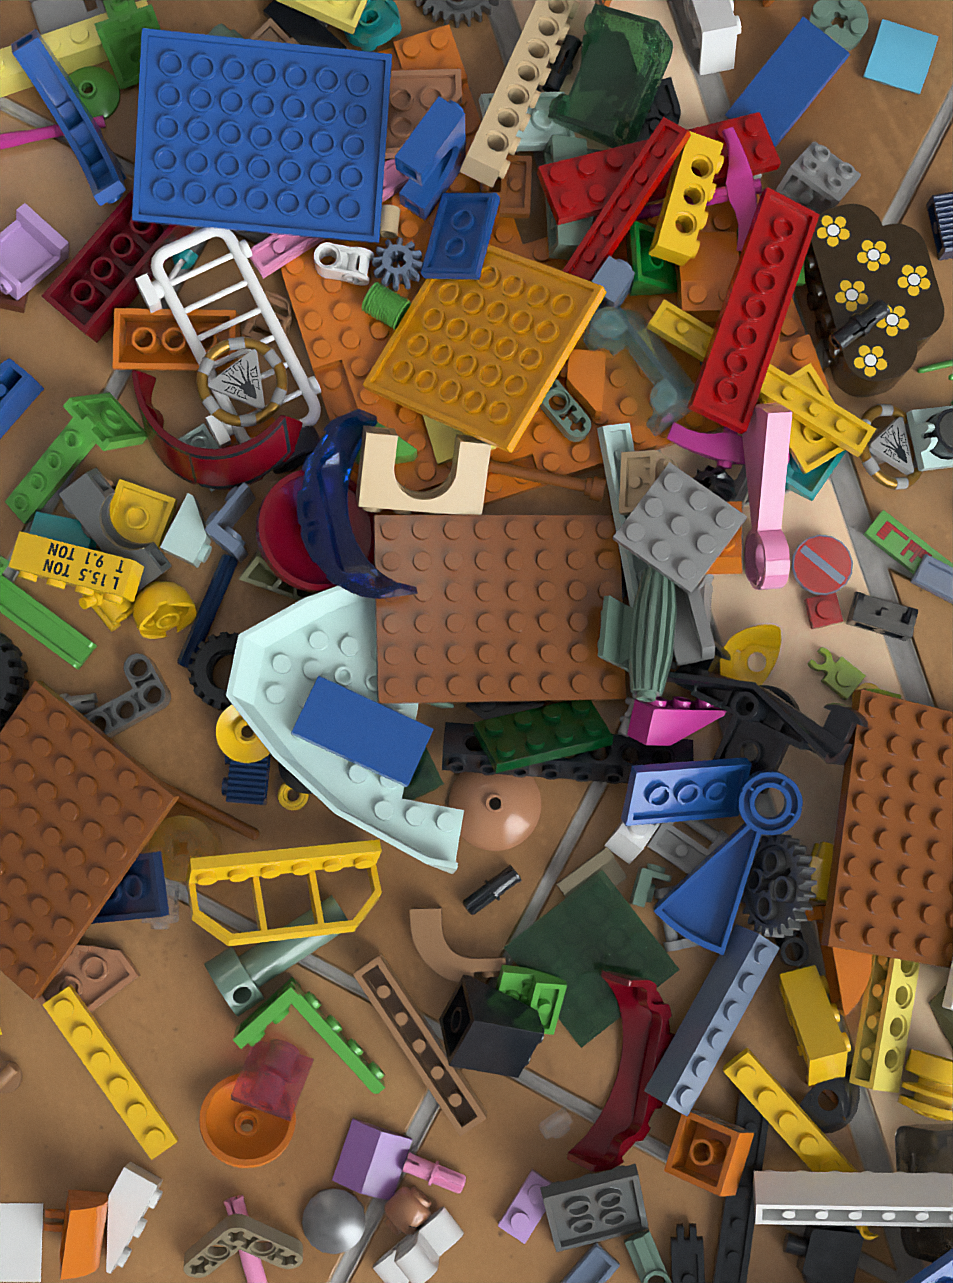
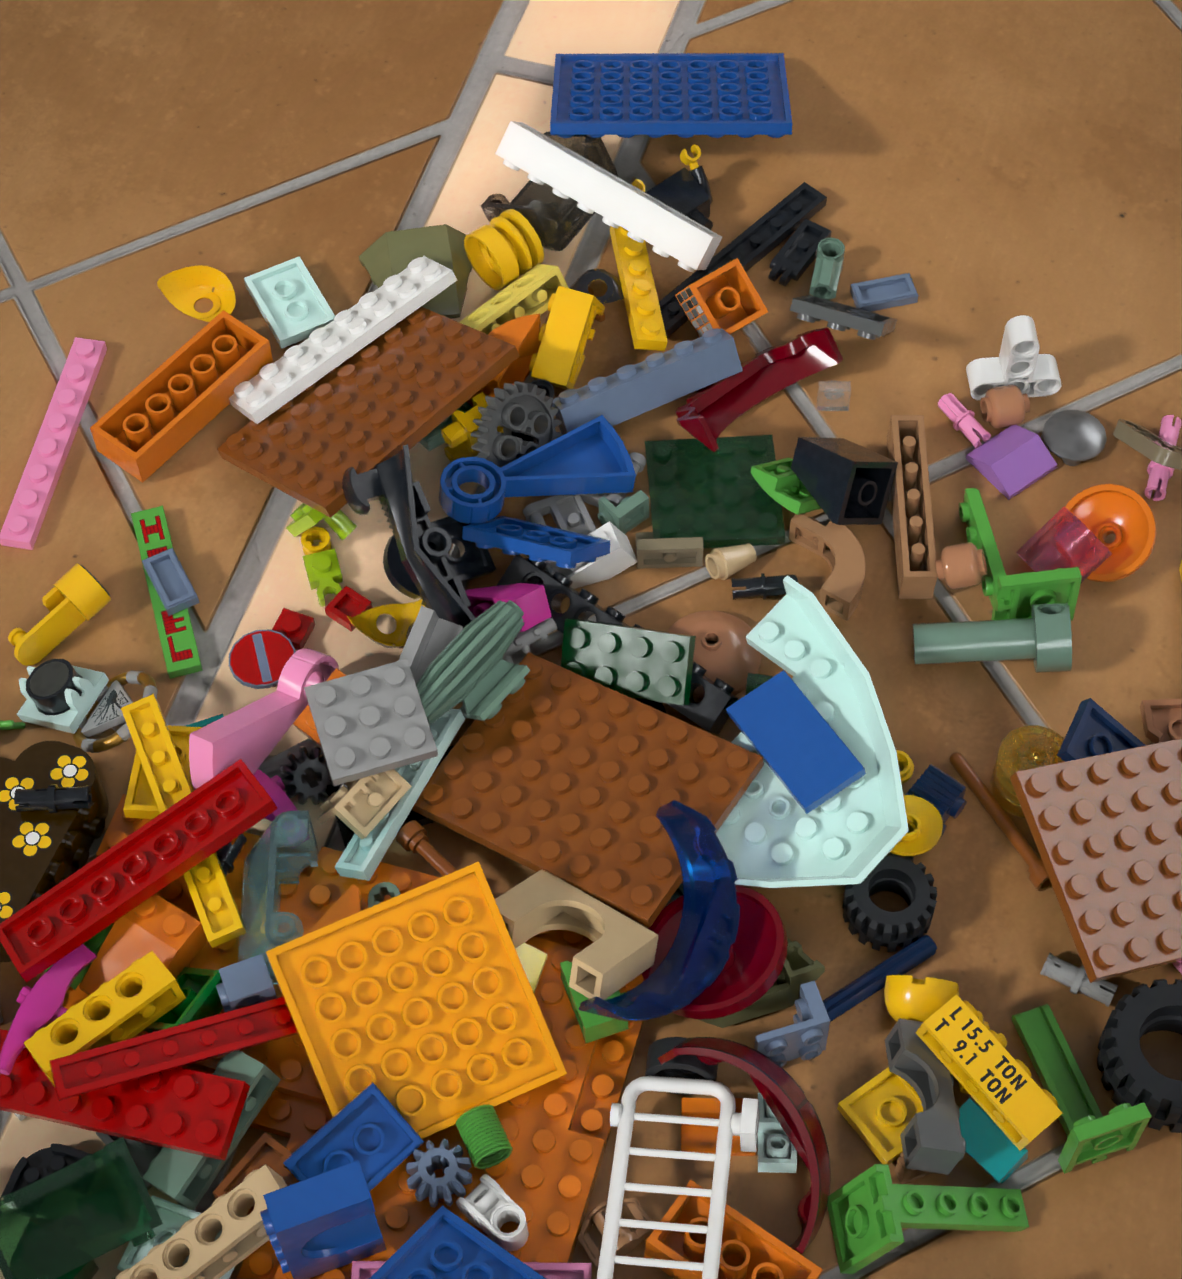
camera: 145 degrees left, 25 degrees down
(137, 696) = (1000, 941): dark grey beam -> none
(187, 534) = (849, 1060): light aqua slope -> none
(242, 381) = (692, 1140): piece -> none
(272, 864) = (958, 688): yellow plate -> none
(338, 995) = (961, 565): none -> nougat head
(389, 221) = (410, 1226): tan hinge -> none
(525, 1208) = (898, 360): lavender plate -> none
(534, 897) = (728, 560): none -> tan cone
(795, 654) = (346, 604): none -> red plate
(882, 617) = (247, 591): black hinge -> none

